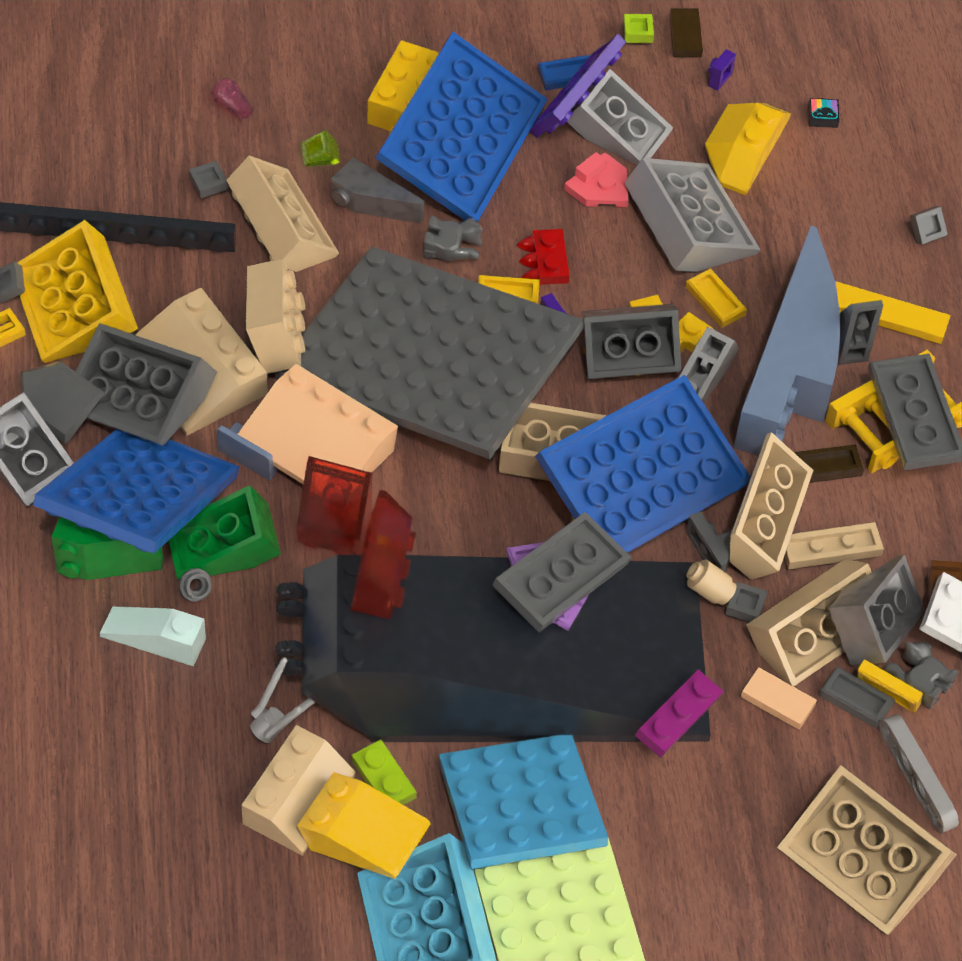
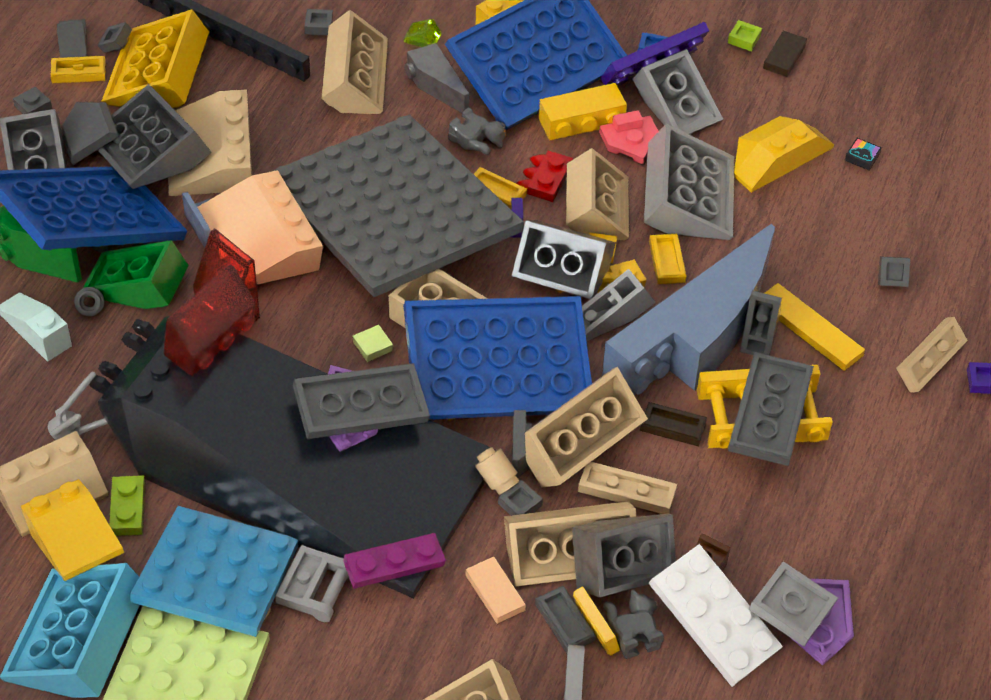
camera: 30 degrees right, 5 degrees down
(274, 315) = (284, 129): tan brick -> none
(501, 505) = (372, 343): none -> yellowish green tile
(539, 174) = (580, 111): none -> yellow brick
(605, 770) = (304, 580): none -> light grey plate
(612, 262) = (597, 196): none -> tan slope
(721, 69) = (793, 89): dark purple plate -> none

